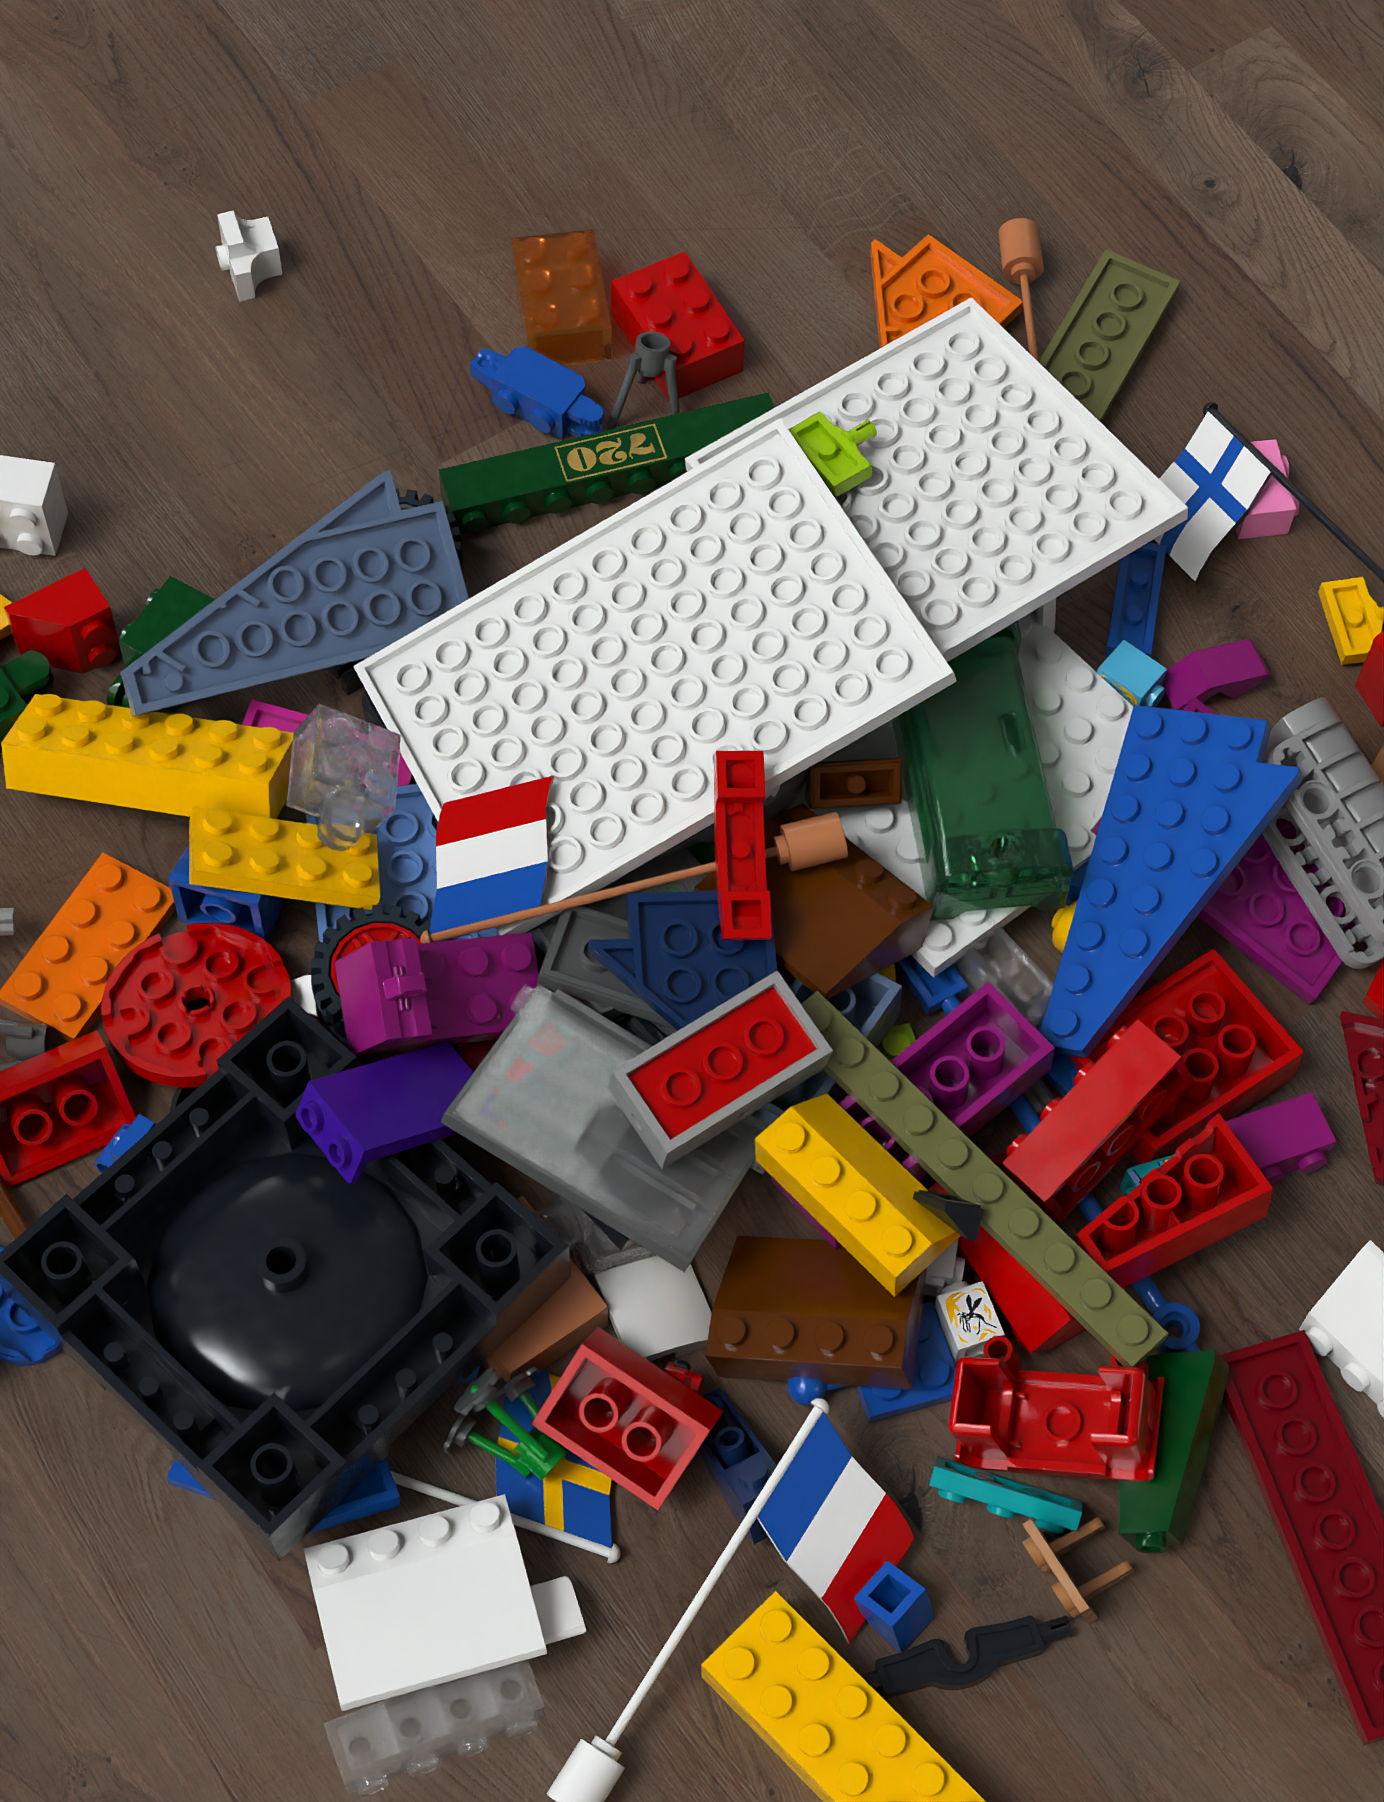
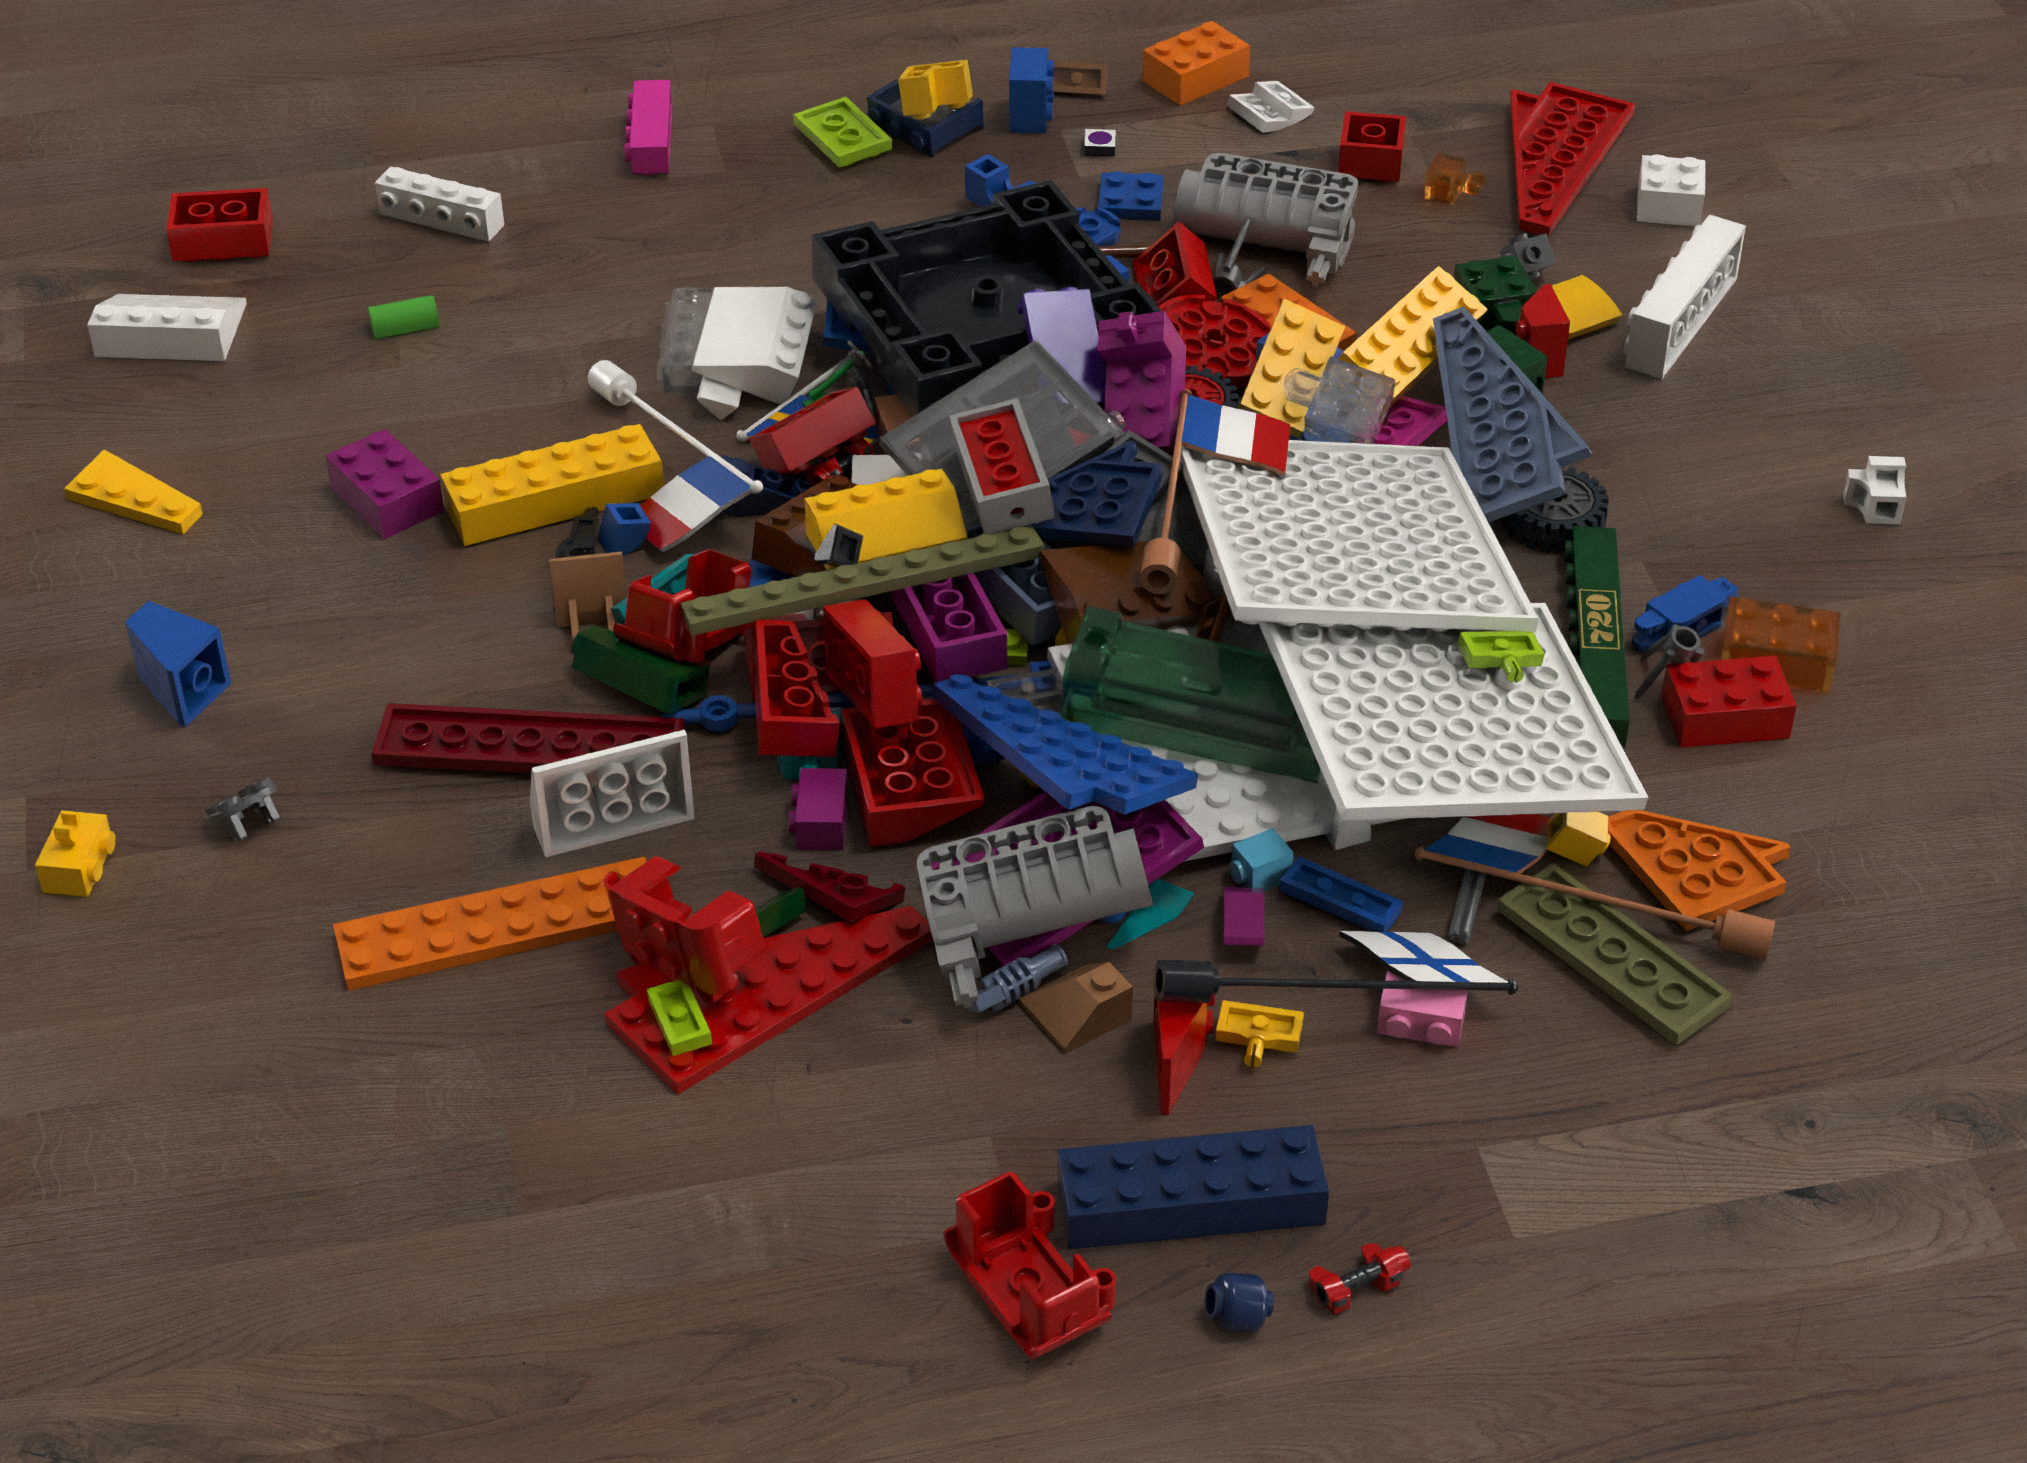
camera: 115 degrees right, 20 degrees down
(741, 846) = (1160, 517): red slope -> none

